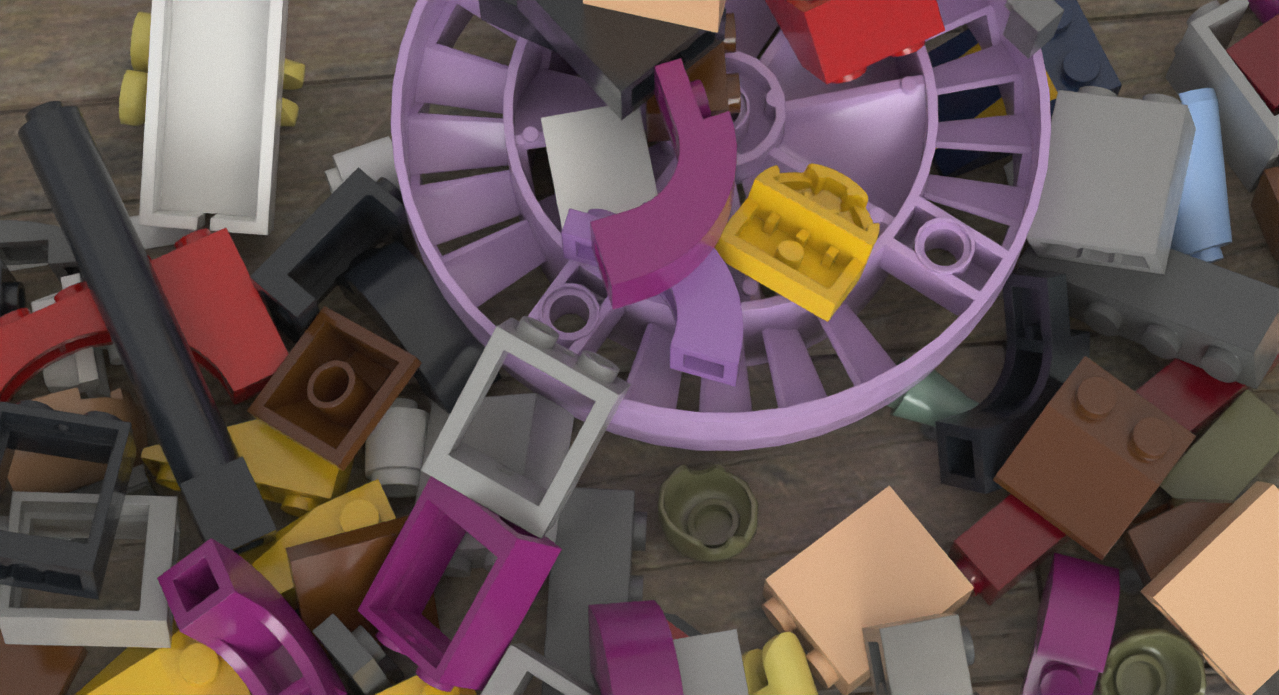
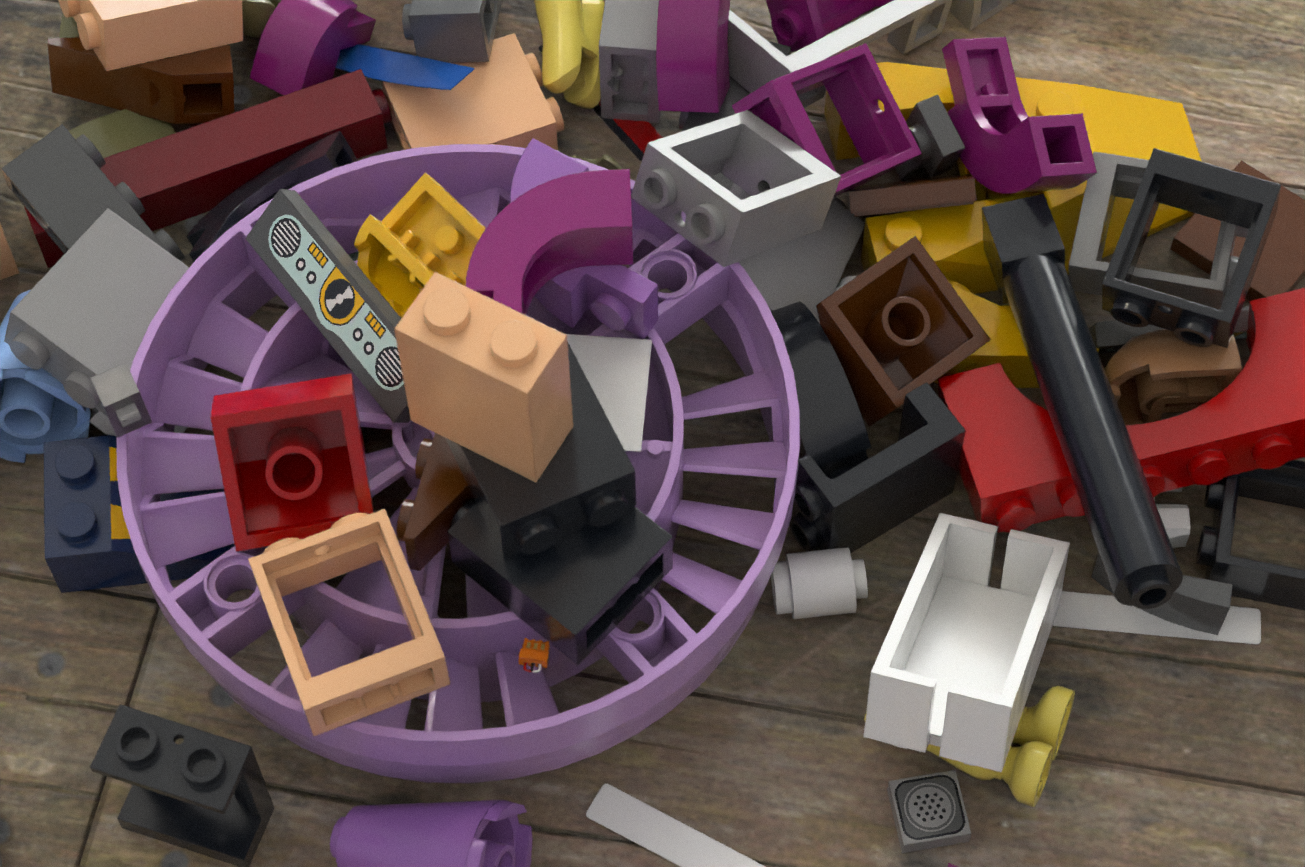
camera: 165 degrees left, 10 degrees down
(866, 167) = (334, 296): none -> tile
(950, 589) = (401, 67): none -> blue sticker
(1094, 457) = (234, 118): reddish brown slope -> none

